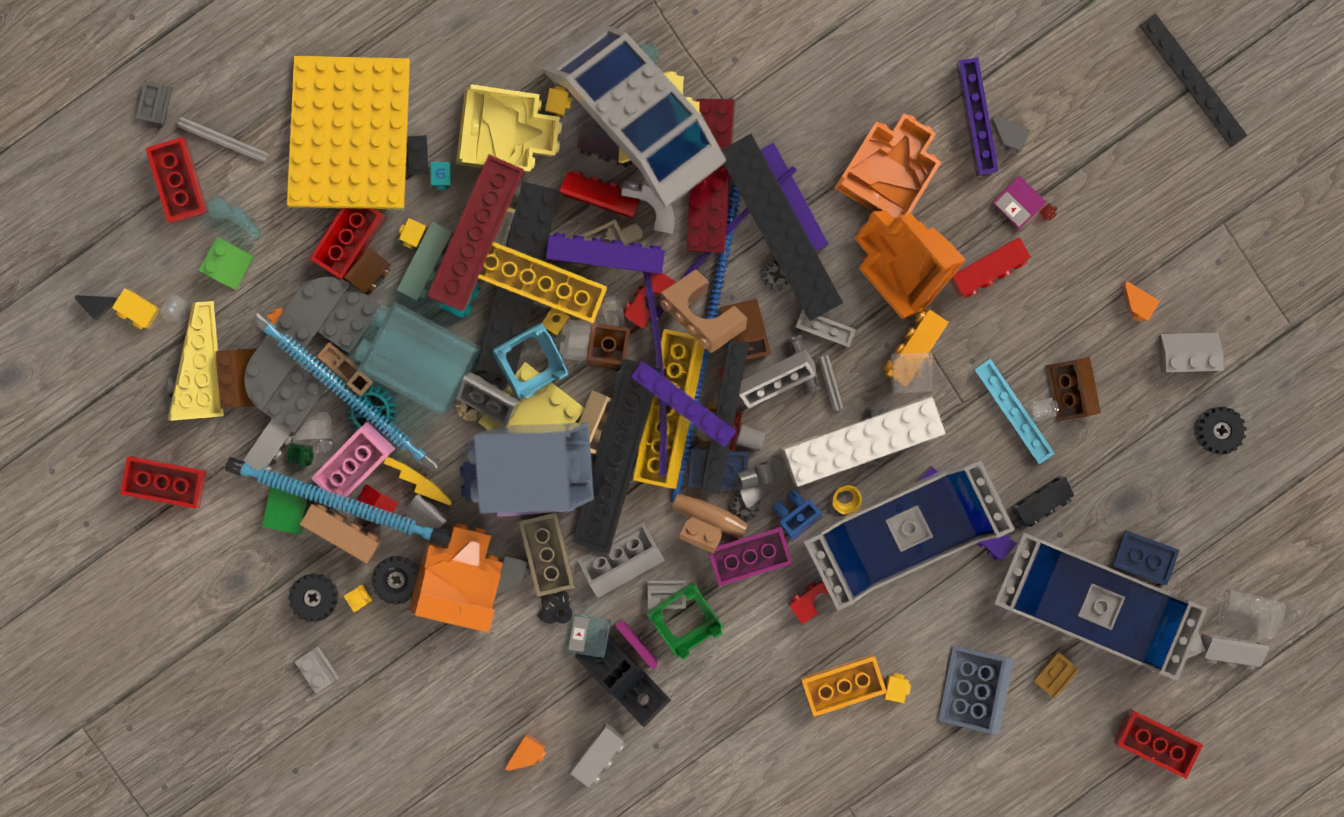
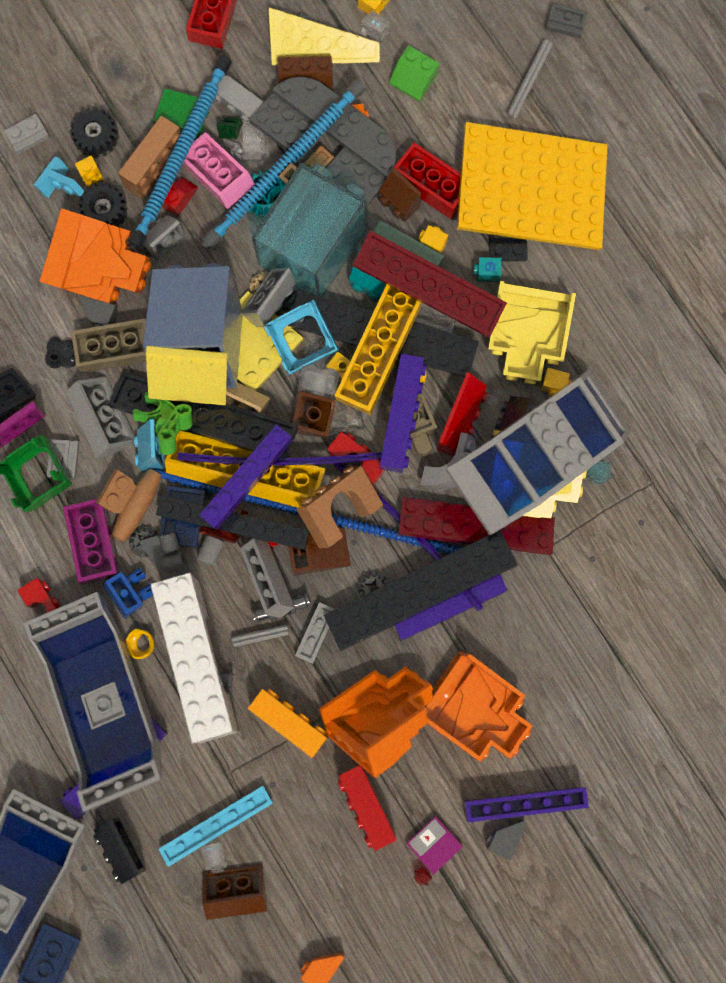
camera: 95 degrees right, 10 degrees down
(176, 180) = (493, 33): red brick -> none
(220, 209) = (464, 72): clear light blue slope -> none
(368, 636) = (55, 177): none -> medium azure bracket
(424, 485) = (191, 237): yellow slope -> none
(586, 469) = (186, 375): none -> light yellow plate
(588, 635) = (29, 381): clear light blue tile -> none
(625, 485) = (168, 420): none -> bright green piece
(652, 507) = (148, 448): none -> medium azure slope
(912, 372) = (260, 713): clear brick -> none

